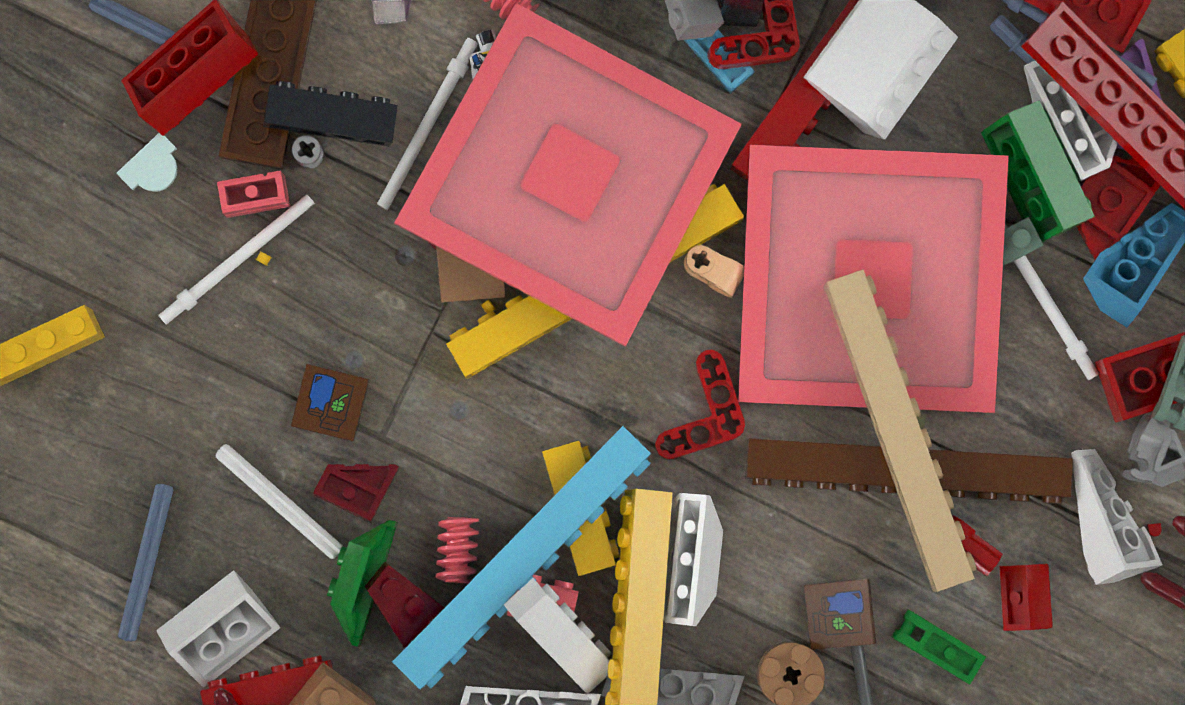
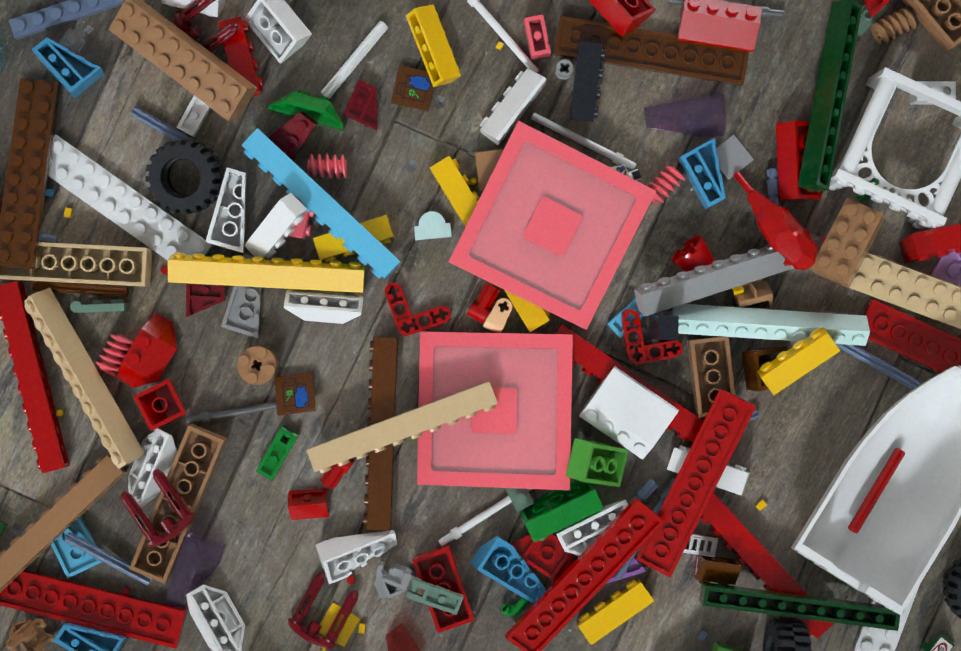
camera: 85 degrees right, 5 degrees up
(260, 366) = (433, 45): none -> yellow brick
(366, 236) = (513, 105): none -> white slope
(562, 377) = (432, 227): none -> light aqua piece
(699, 298) = (482, 305): none -> red piece
(963, 110) = (597, 462): none -> bright green brick

